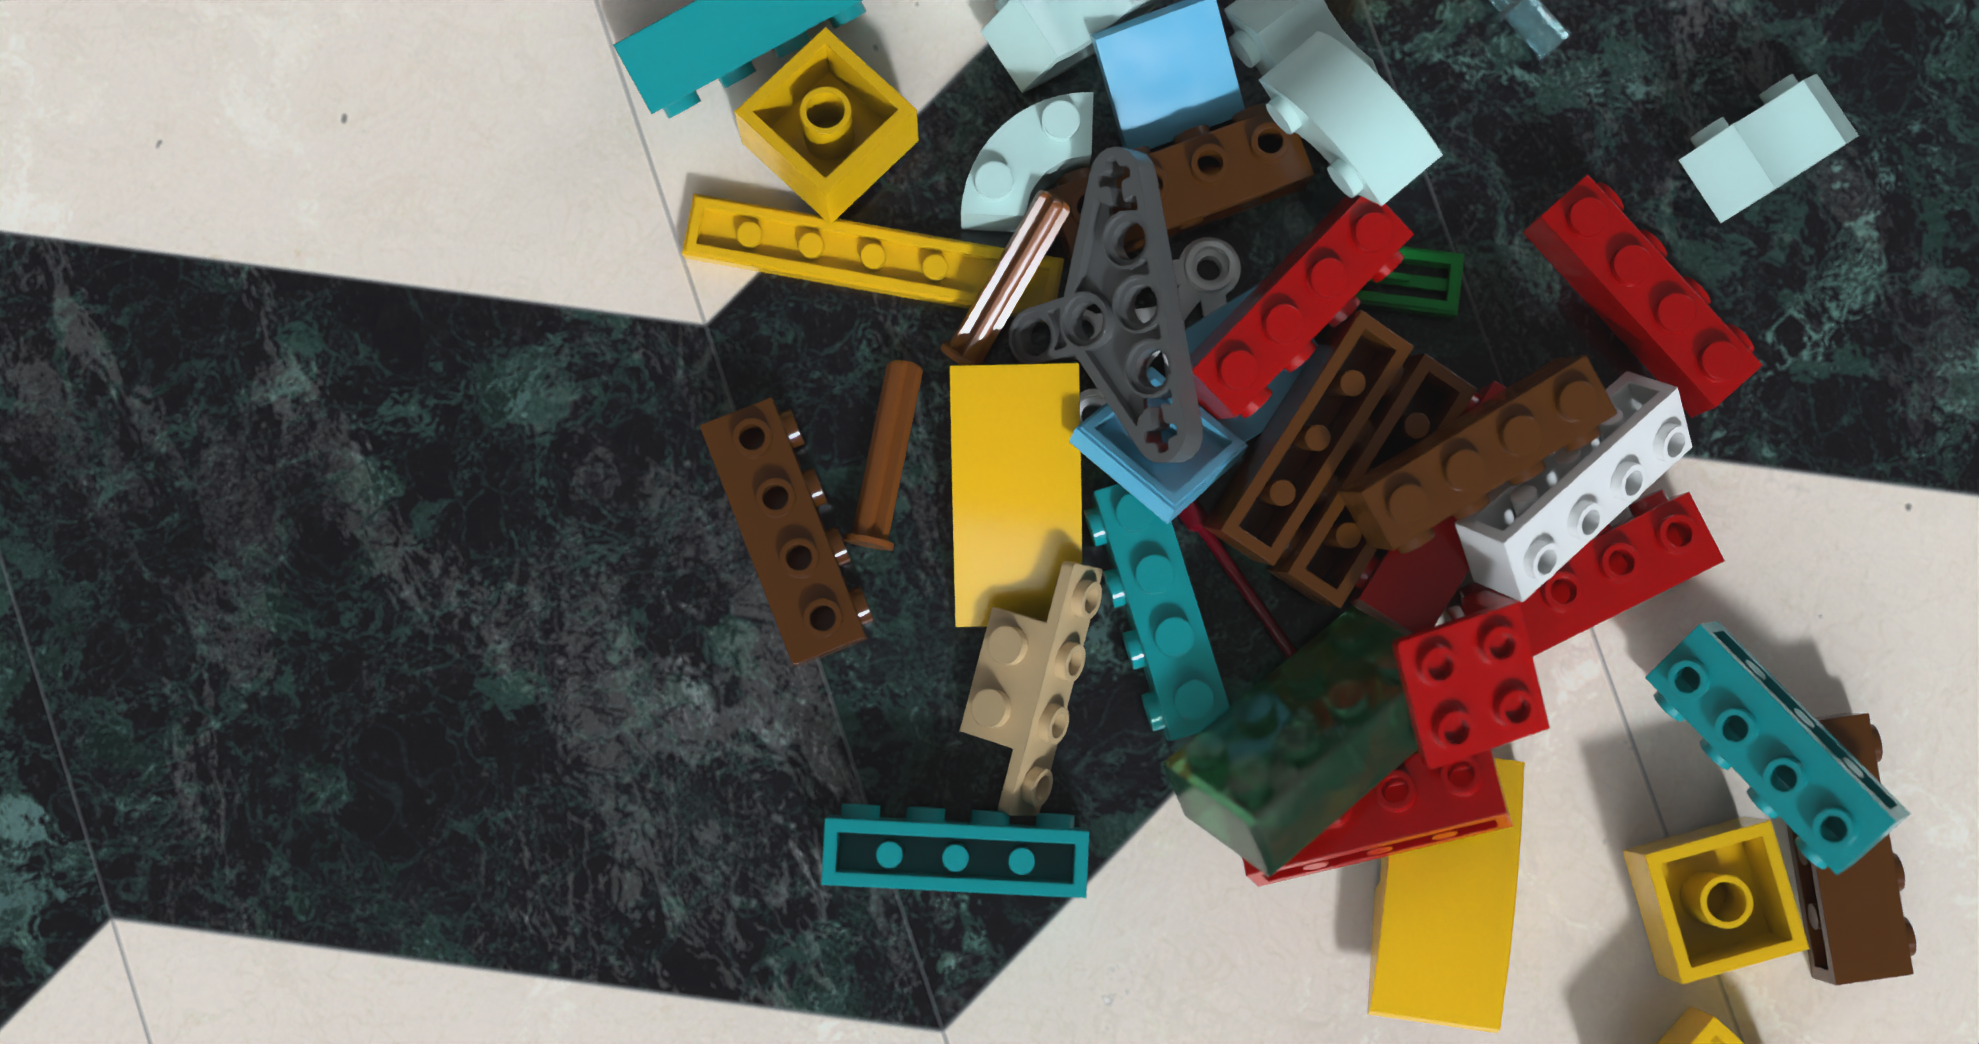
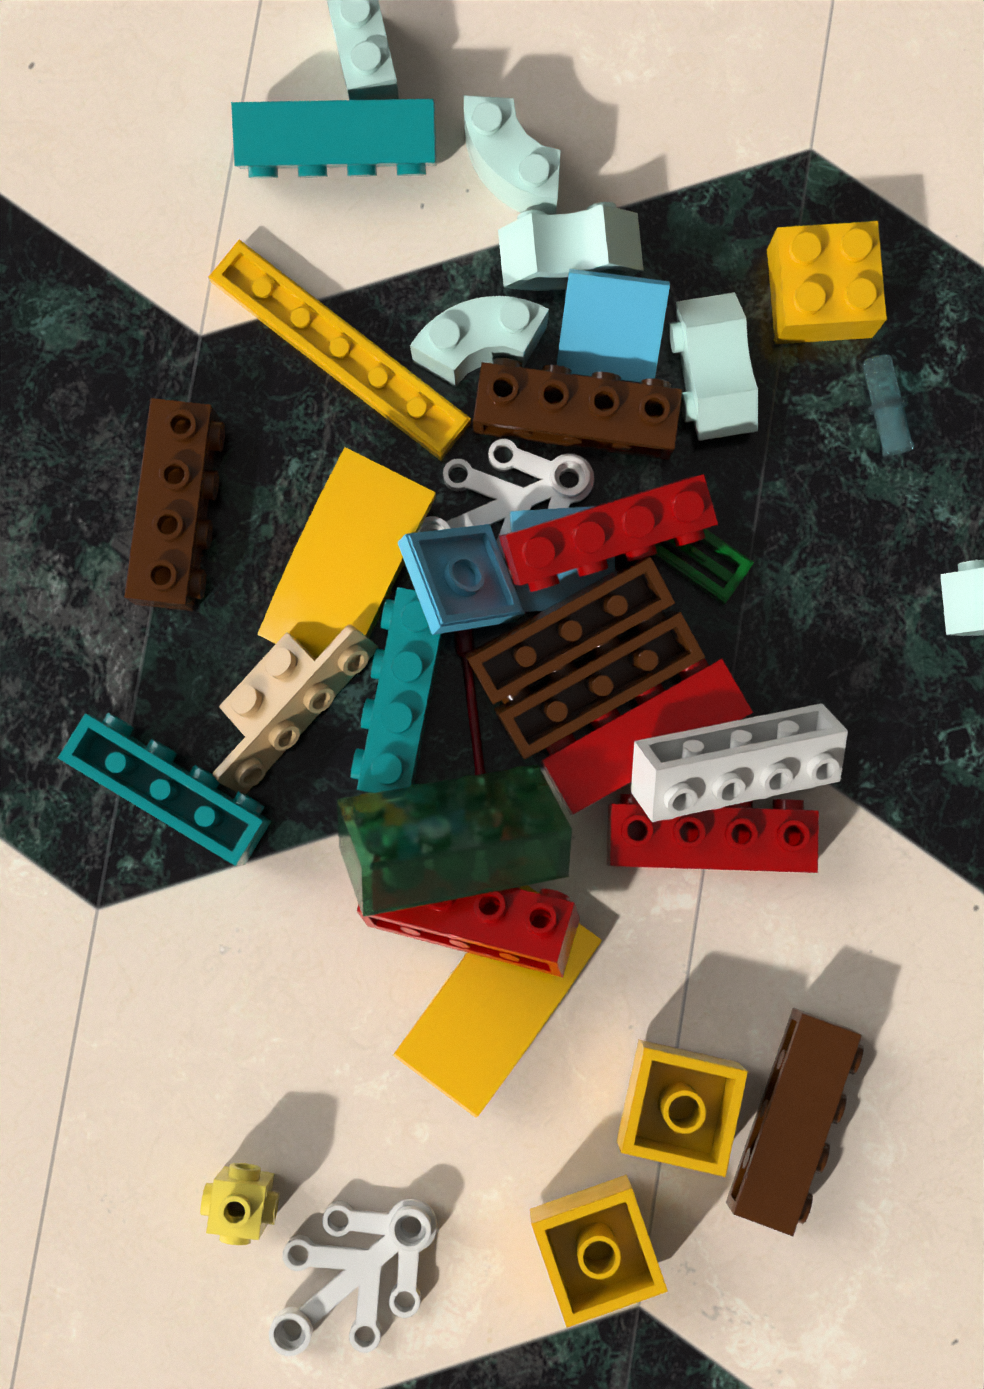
camera: 30 degrees right, 0 degrees up
(827, 125) = (353, 238): yellow brick -> none
(886, 456) = (273, 490): dark orange axle -> none
(1007, 280) = (420, 410): axle -> none
(1111, 280) = (486, 444): dark grey beam -> none
(1349, 118) = (713, 417): light aqua brick -> none
(1471, 681) = (580, 857): red bracket -> none
(1477, 453) = (677, 700): reddish brown brick -> none
(1642, 296) = (862, 656): red brick -> none
(1776, 747) = (779, 1023): teal brick -> none

